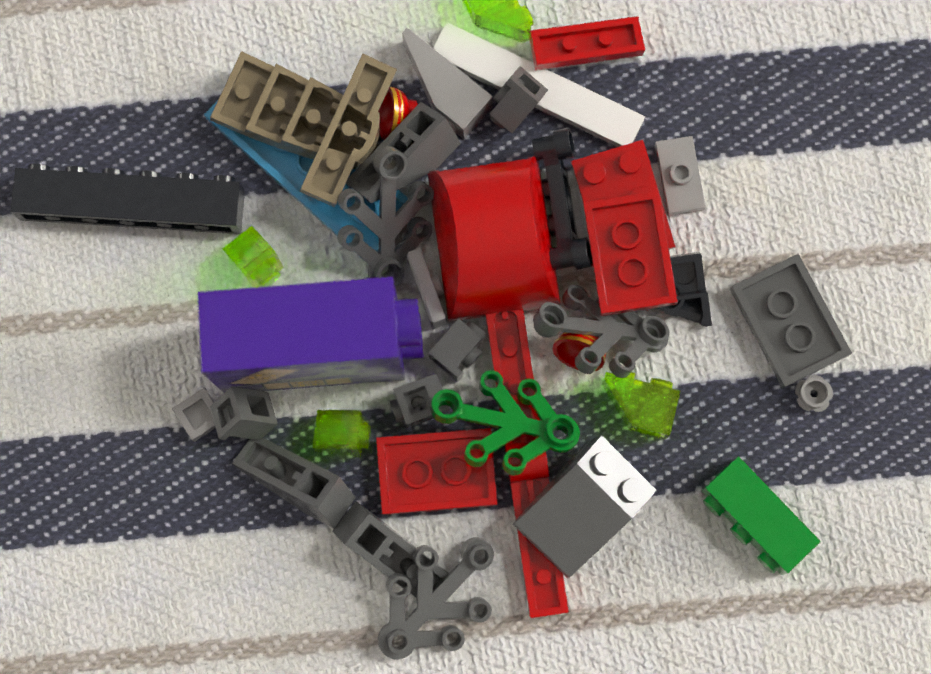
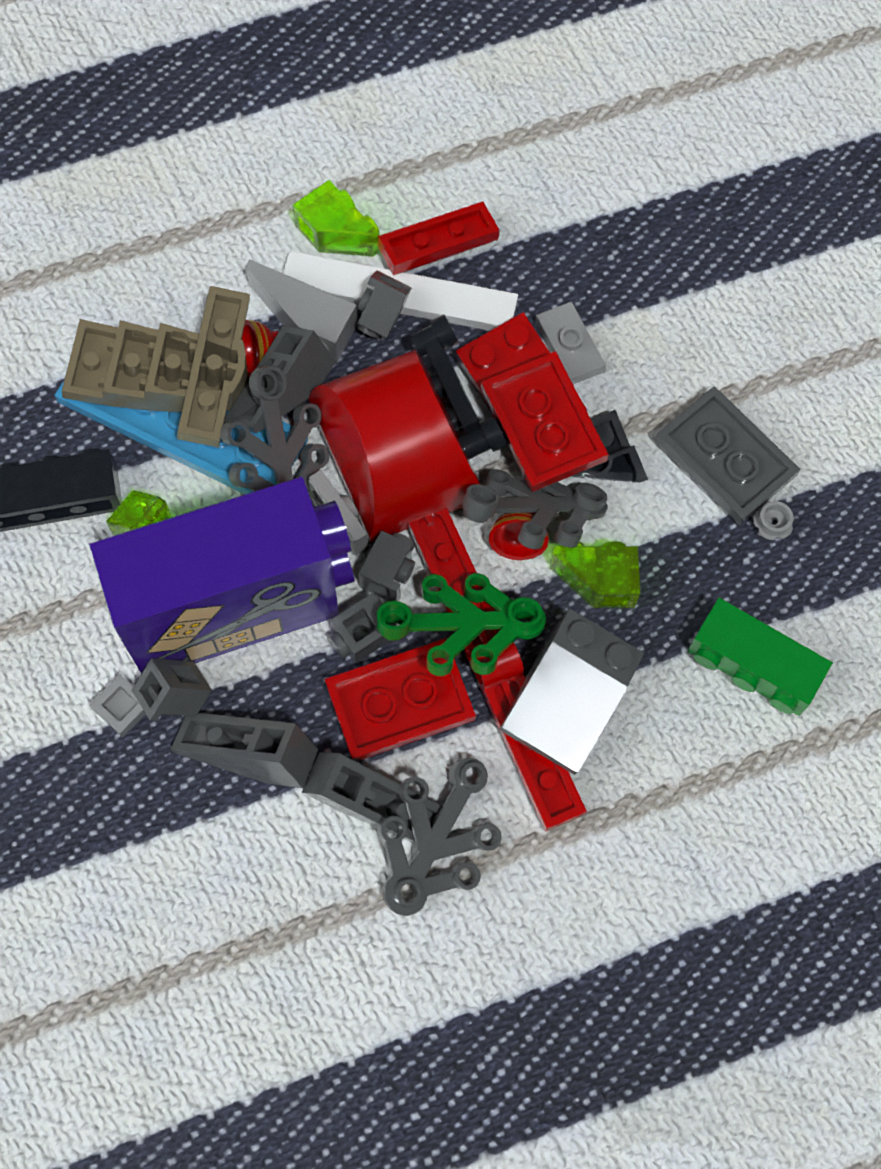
camera: 20 degrees left, 10 degrees down
(341, 432) = (285, 681): clear neon green slope -> none

